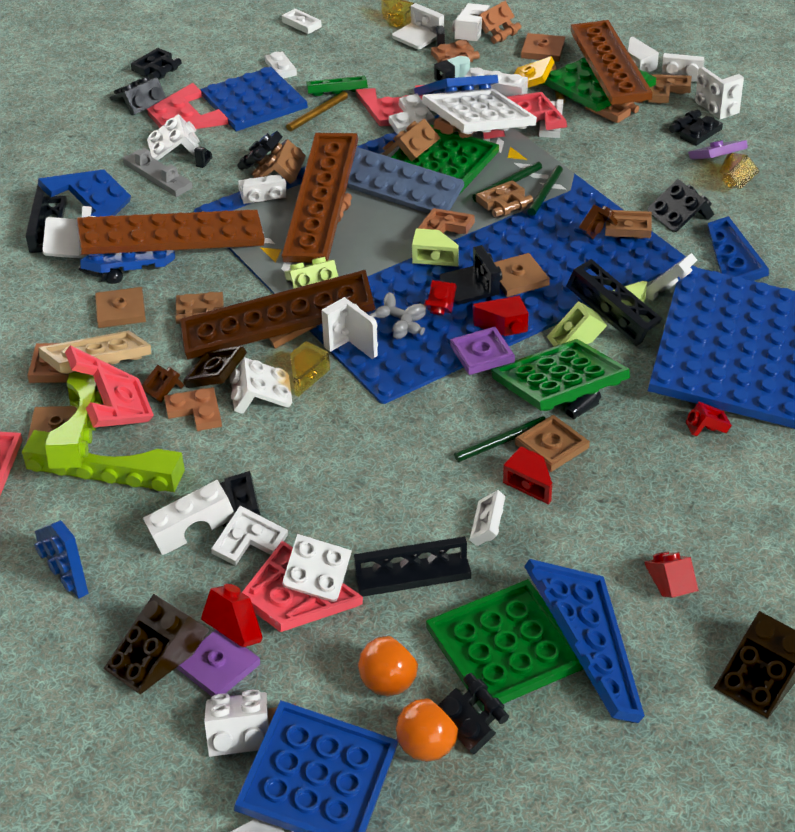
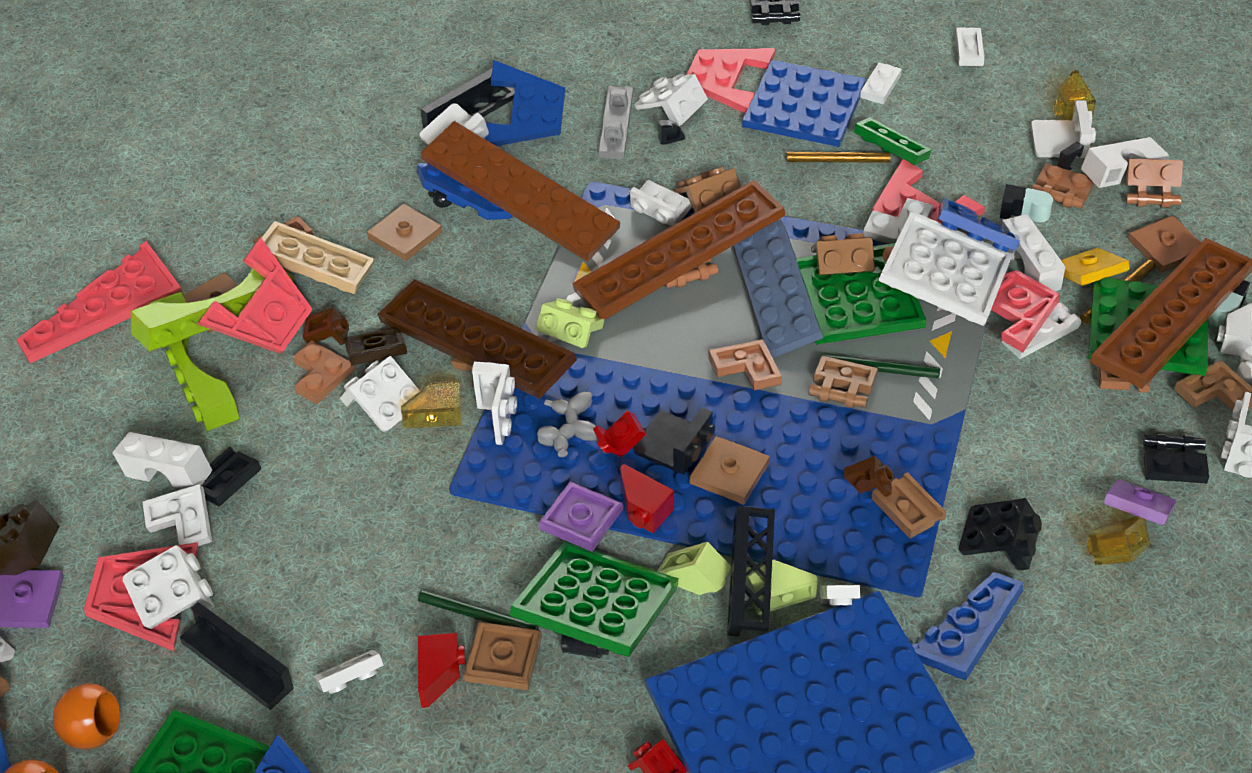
camera: 50 degrees right, 5 degrees up
(61, 550) = (43, 411): blue plate -> none
(140, 94) = (711, 31): black bracket -> none
(194, 304) = (459, 278): medium nougat plate -> none
(232, 615) = (72, 571): red slope -> none
(259, 150) = (715, 160): black plate -> none
(434, 248) = (693, 377): yellowish green slope -> none
(545, 190) = (898, 404): dark green bar -> none

